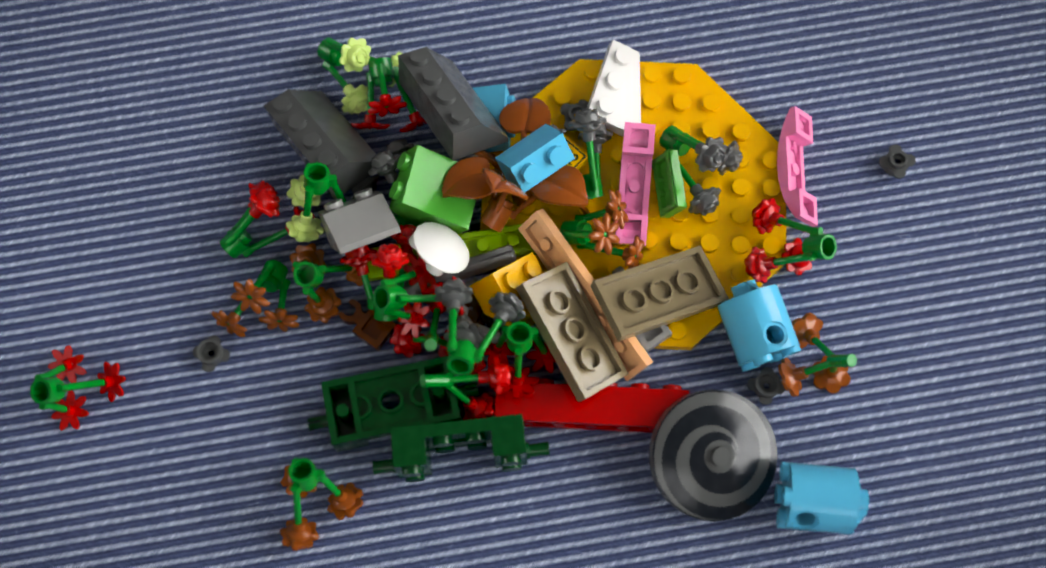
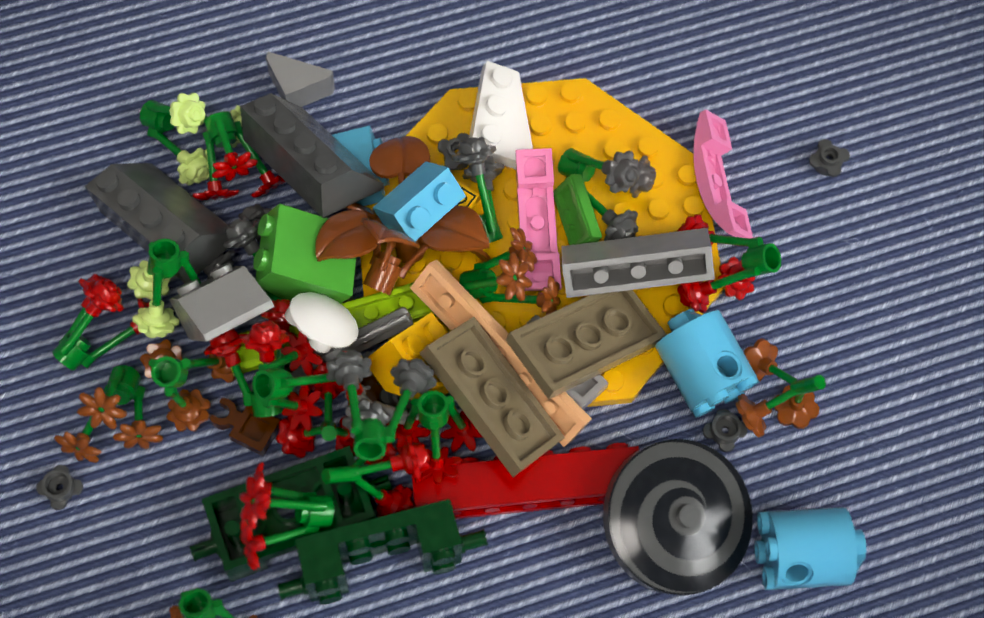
camera: 15 degrees left, 5 degrees down
(406, 405) = (309, 508): none -> plant
(454, 37) = (299, 81): none -> light grey slope
(713, 234) = (637, 262): none -> light grey brick

